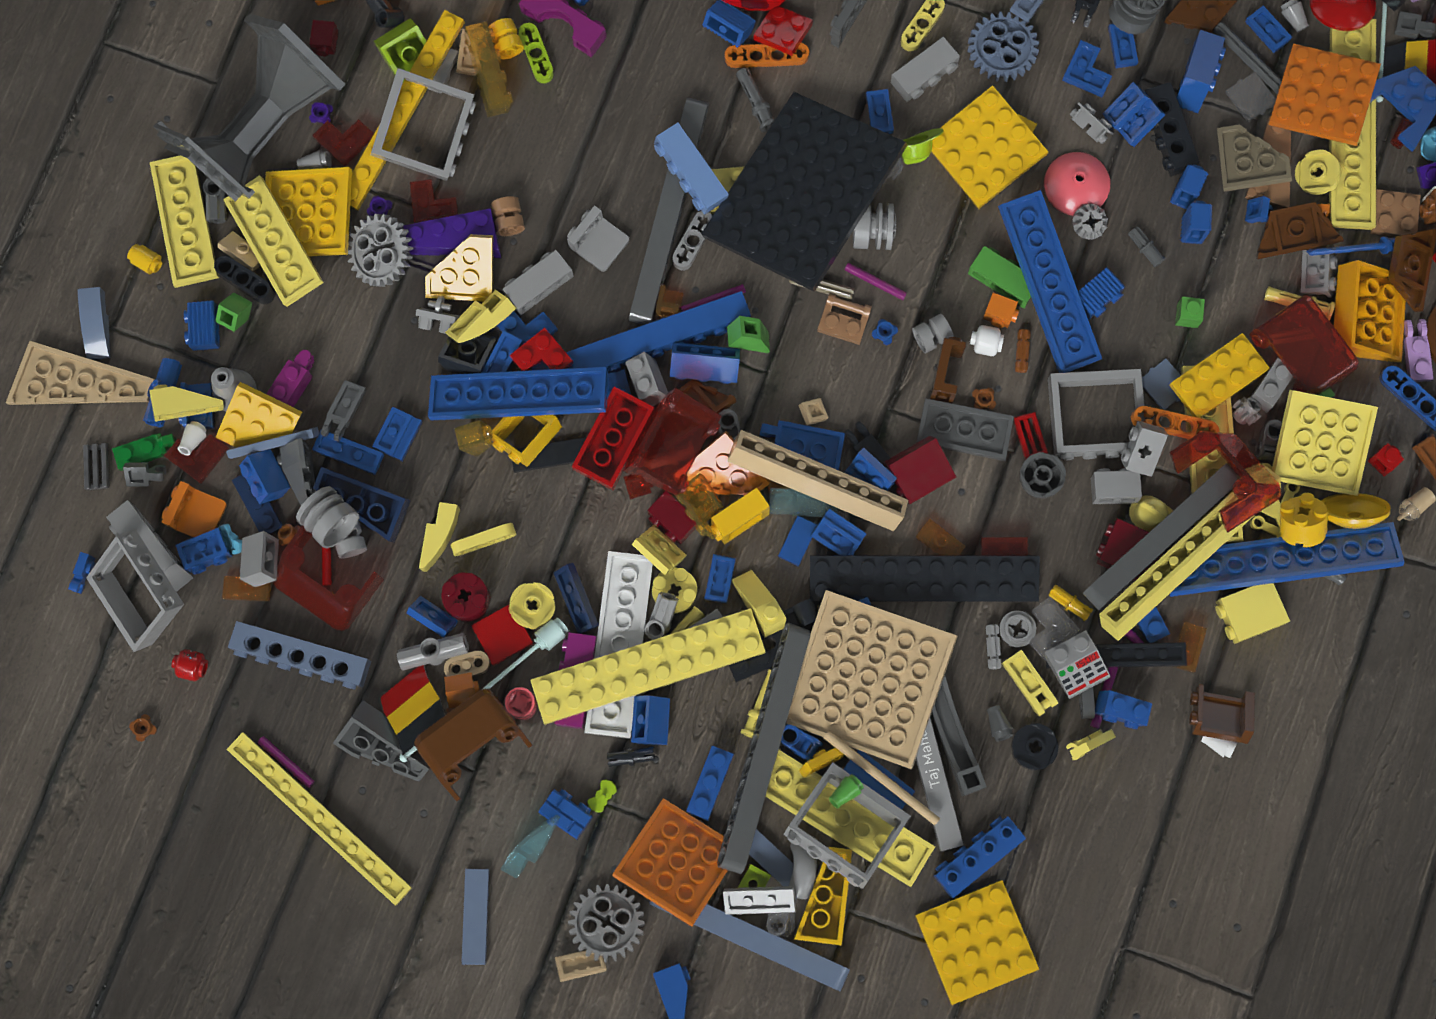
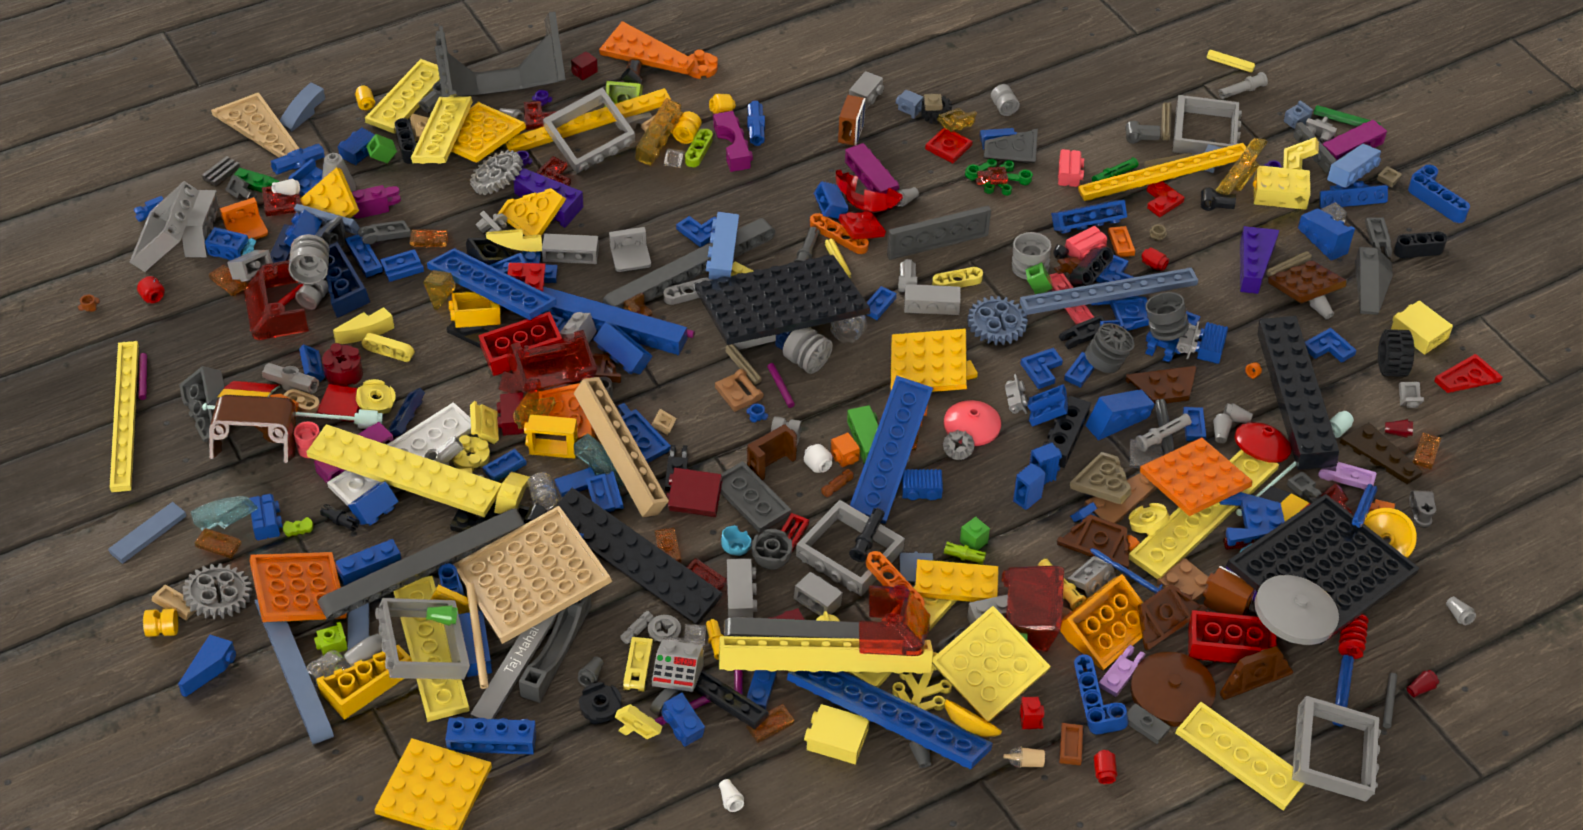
camera: 35 degrees right, 30 degrees down
(177, 403) = (297, 161): light yellow slope -> none
(244, 635) = (215, 329): sand blue brick -> none
(387, 378) = (428, 238): none -> clear orange plate
(507, 214) = (590, 206): medium nougat wheel -> none
(525, 86) = (674, 158): none -> clear slope
(551, 874) = (217, 543): none -> clear orange plate
(598, 989) = (160, 622): none -> yellow wheel
(637, 163) = (695, 231): none -> blue plate
(748, 334) = (667, 351): bright green slope -> none
(759, 900) = (321, 641): plate -> none
(790, 85) = (833, 250): none -> light yellow axle
(791, 581) = (542, 490): none -> clear wheel
(872, 470) = (662, 468): blue plate -> none
(882, 63) = (907, 274): none -> light grey piece
(919, 146) = (882, 333): lime piece -> none
(988, 394) = (783, 490): dark orange plate -> none
(998, 489) = (735, 542): none -> medium azure hair
(1046, 535) = (740, 588): none -> light grey brick
(1115, 403) = (865, 540): none -> black pin
(1146, 246) = (983, 484): dark grey axle -> none
(1147, 458) = (866, 573): light grey brick -> none
(1193, 336) = (965, 553): none -> lime pin
(1222, 715) = (747, 776): reddish brown panel -> none
(1246, 411) = (956, 615): light grey gear -> none
(1252, 72) = (1156, 435): none -> light grey pin
(1303, 520) = (926, 694): yellow brick -> none

